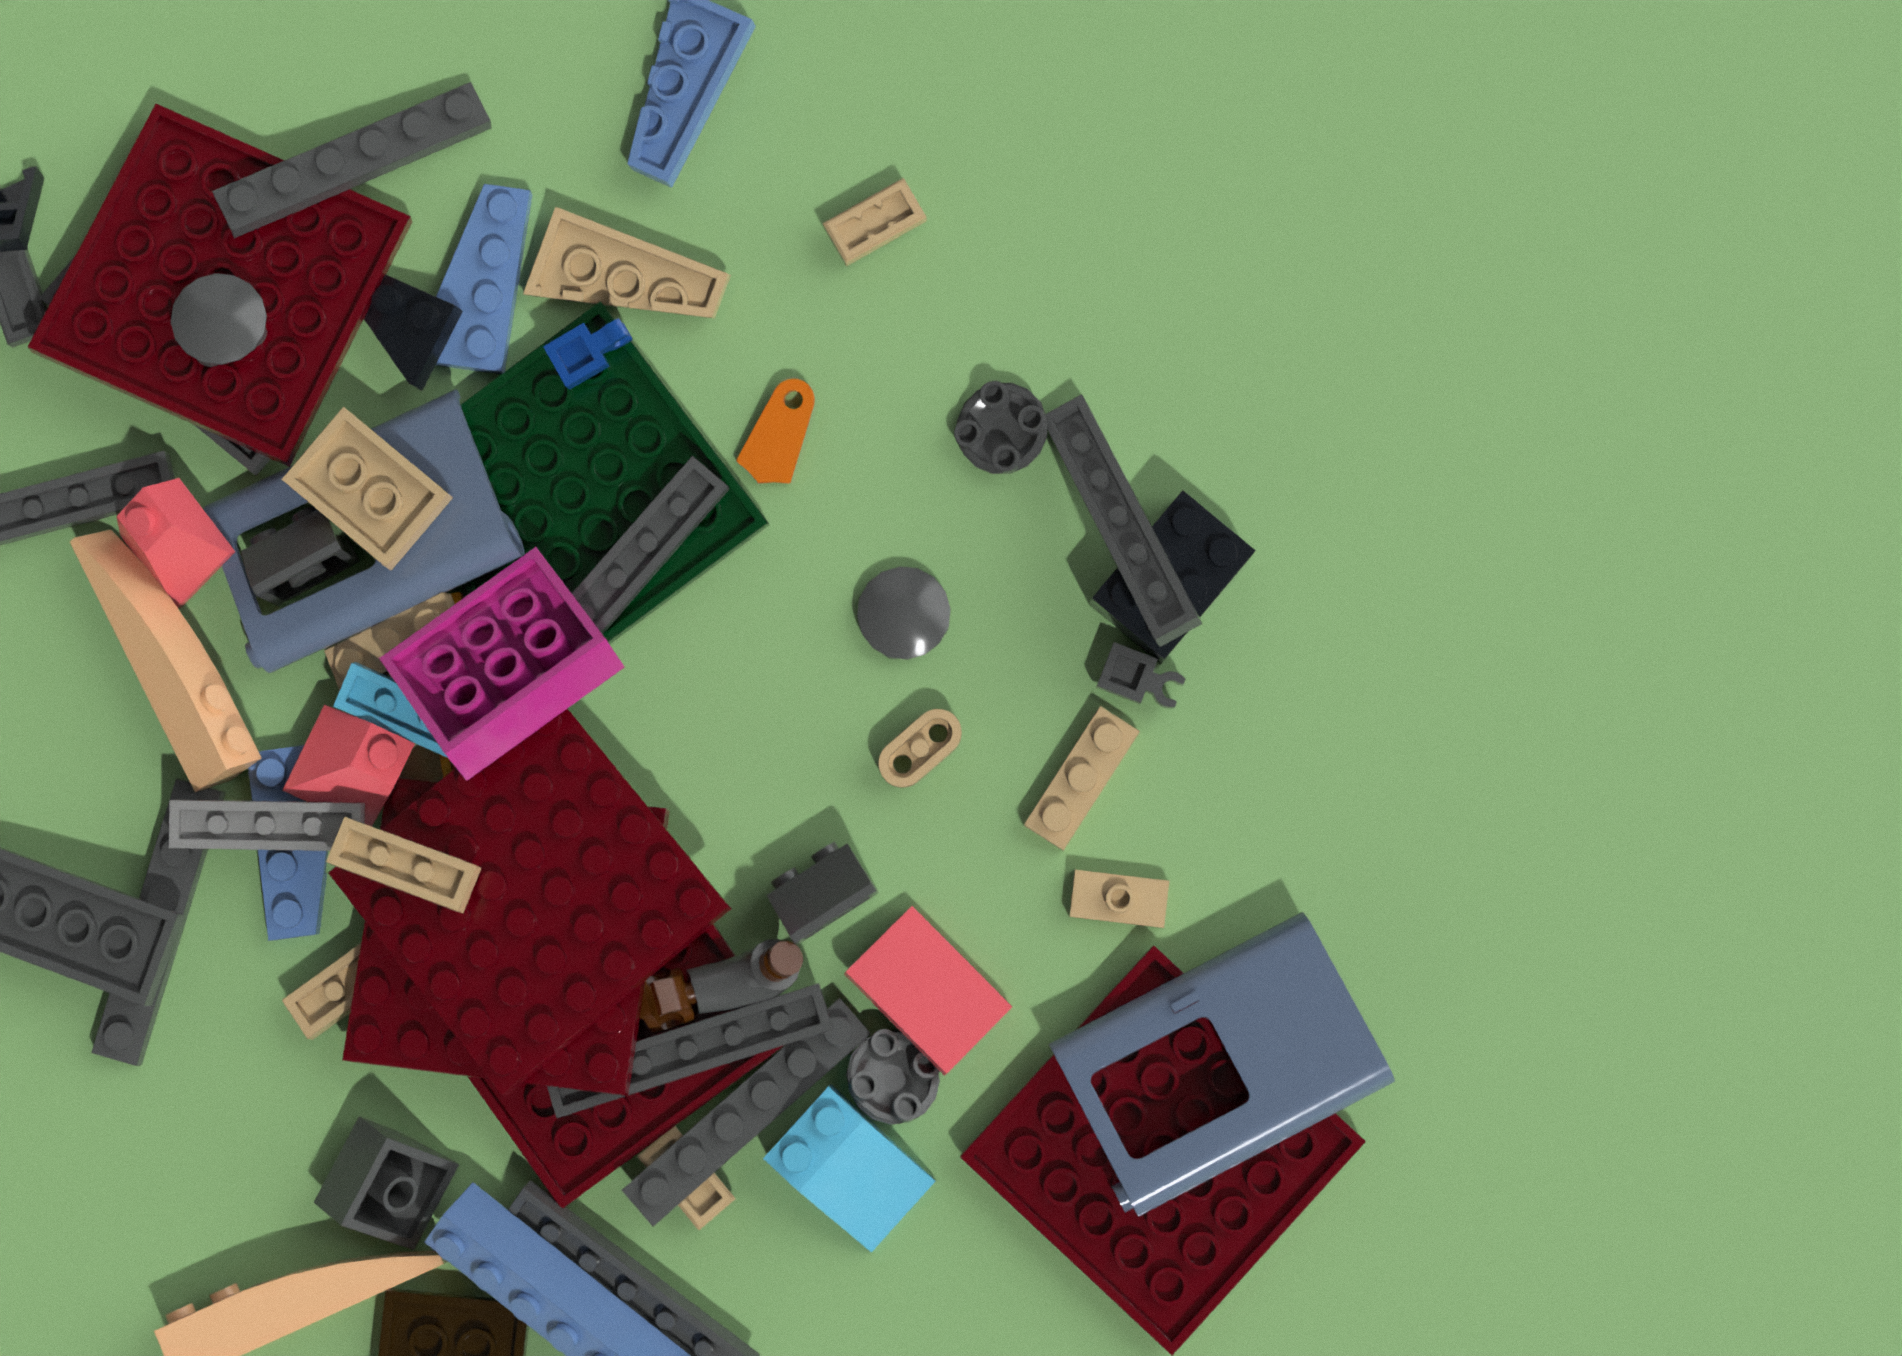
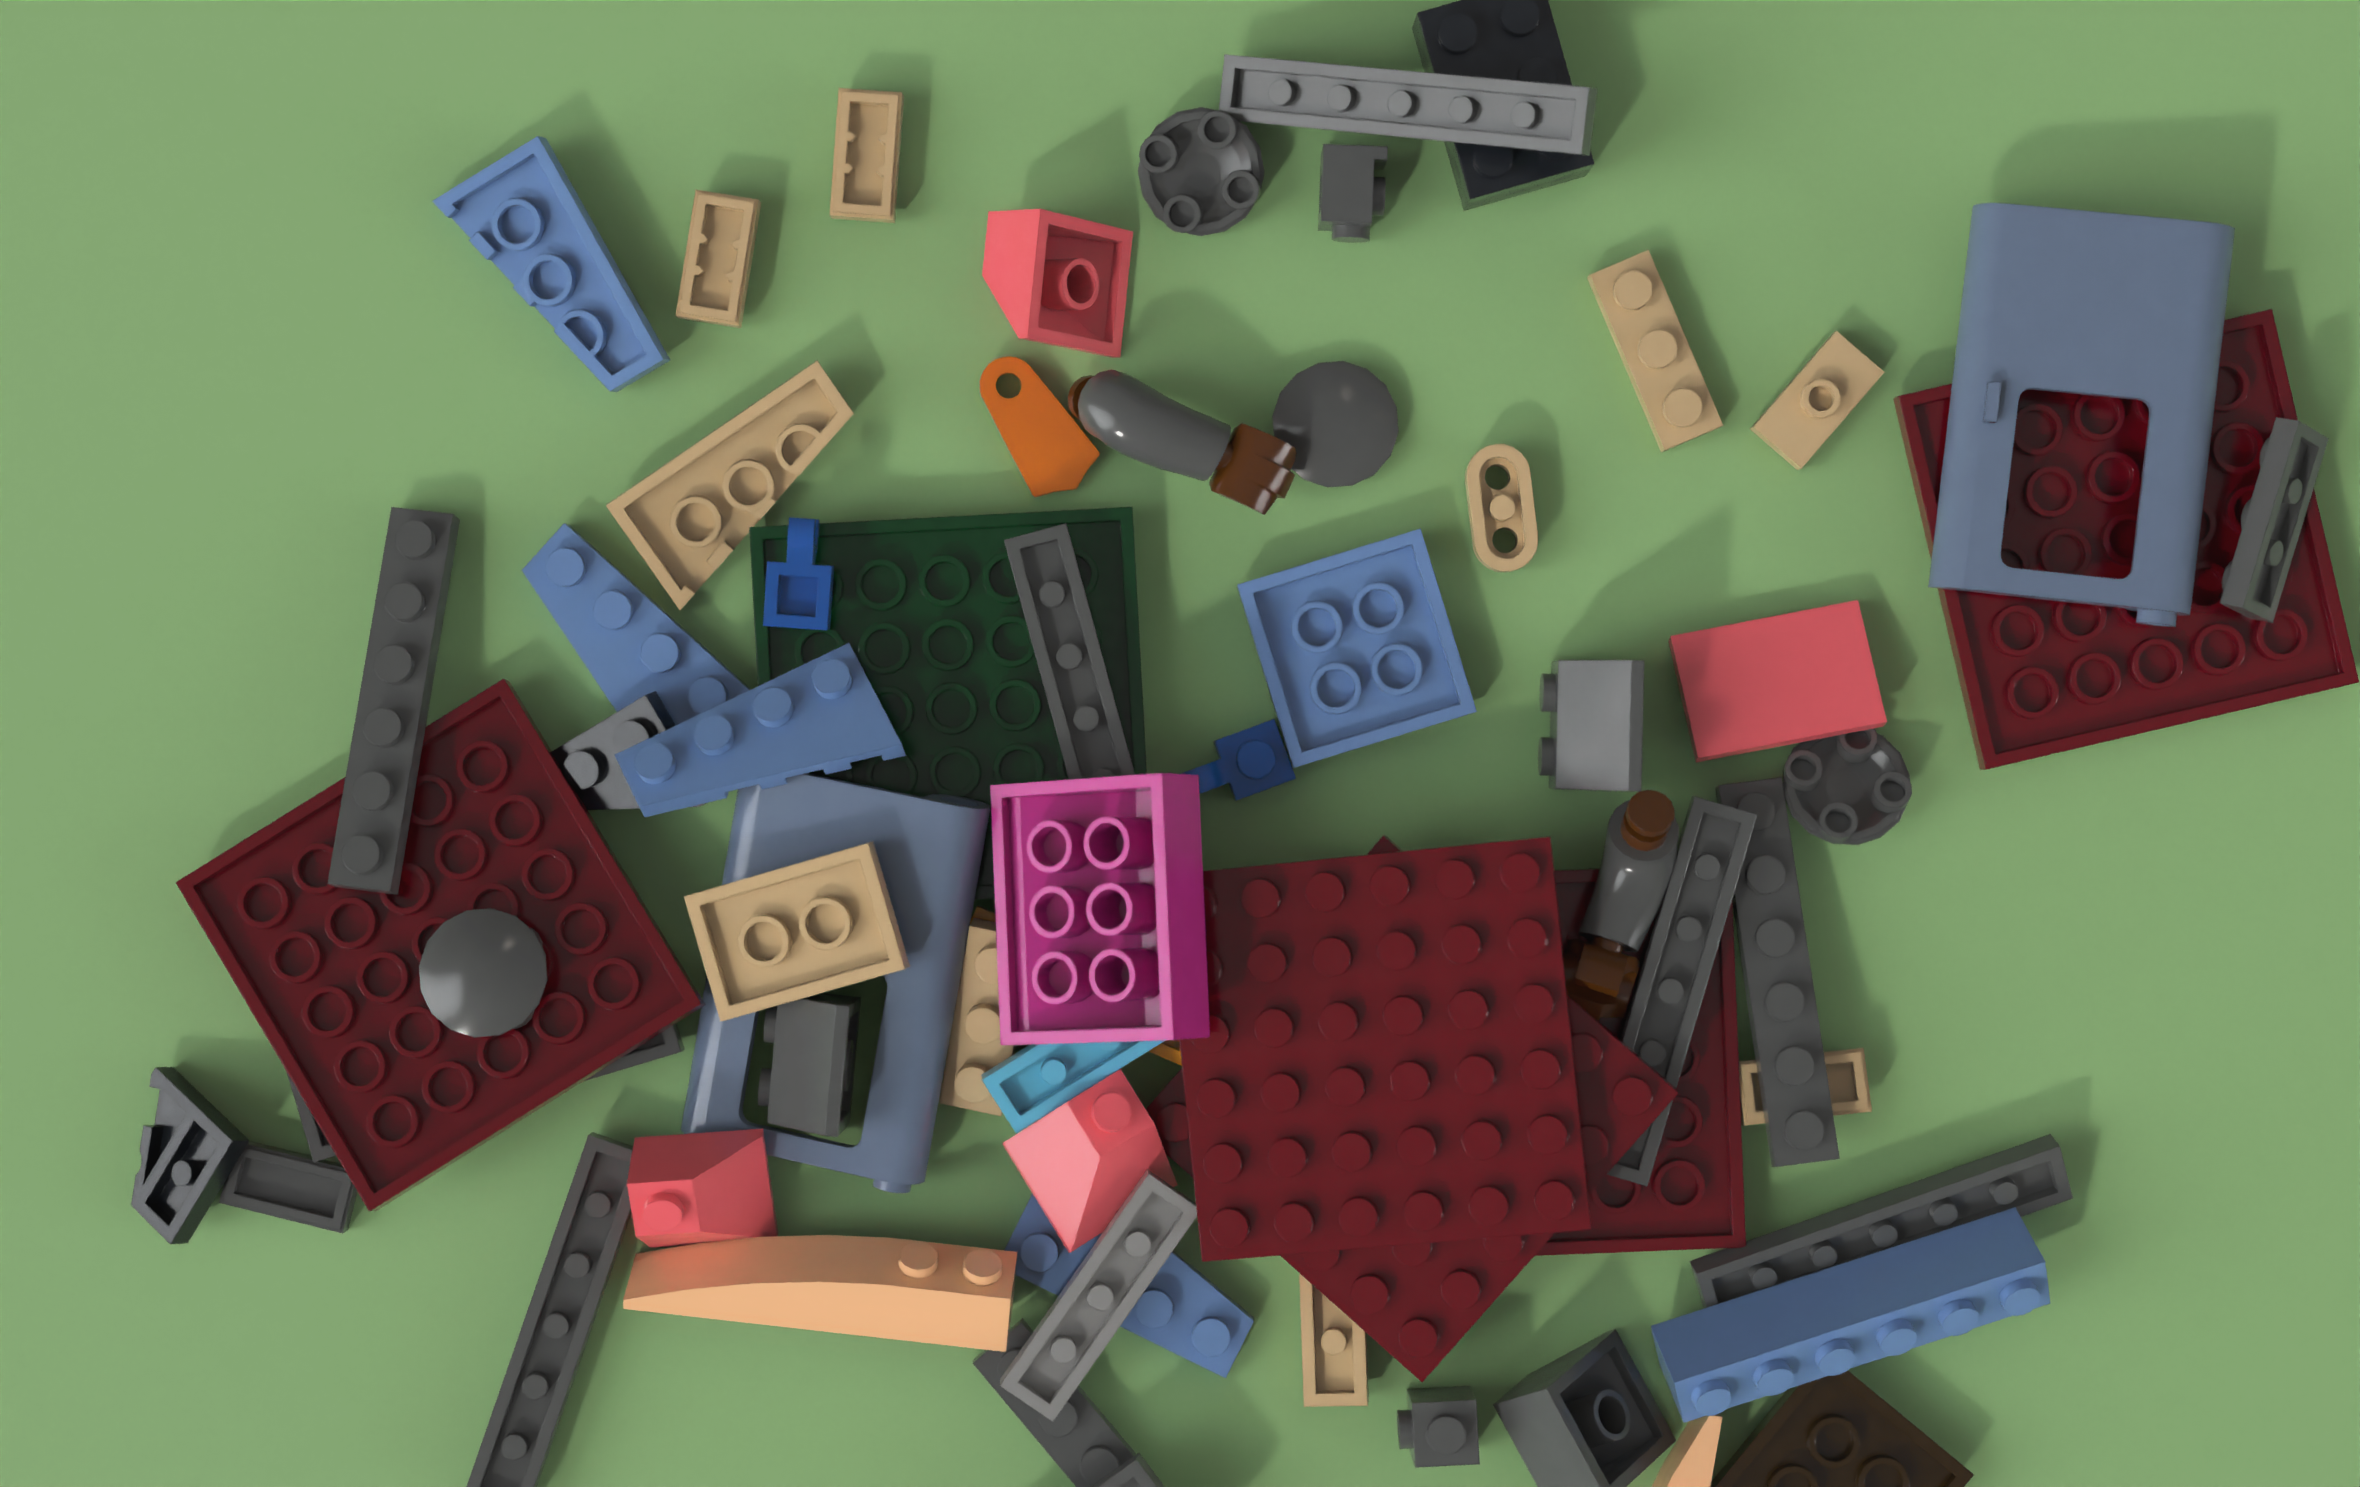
camera: 50 degrees left, 5 degrees up
(323, 1092) = (1440, 1426): none -> dark grey brick
(403, 865) = (1257, 1170): tan plate -> none
(488, 400) = (781, 729): none -> medium blue wing
(659, 699) = (1248, 762): none -> blue plate
(752, 175) = (718, 258): none -> tan plate
(774, 717) = (1356, 648): none -> medium blue plate
(826, 521) = (1172, 437): none -> dark grey piece
(849, 1168) = (1910, 901): medium azure slope -> none
(877, 386) = (1059, 278): none -> coral slope
(1051, 525) = (1350, 191): none -> dark grey brick
(1131, 675) = (1581, 215): dark grey plate -> none
(1233, 1229) = (2273, 519): none -> dark grey plate

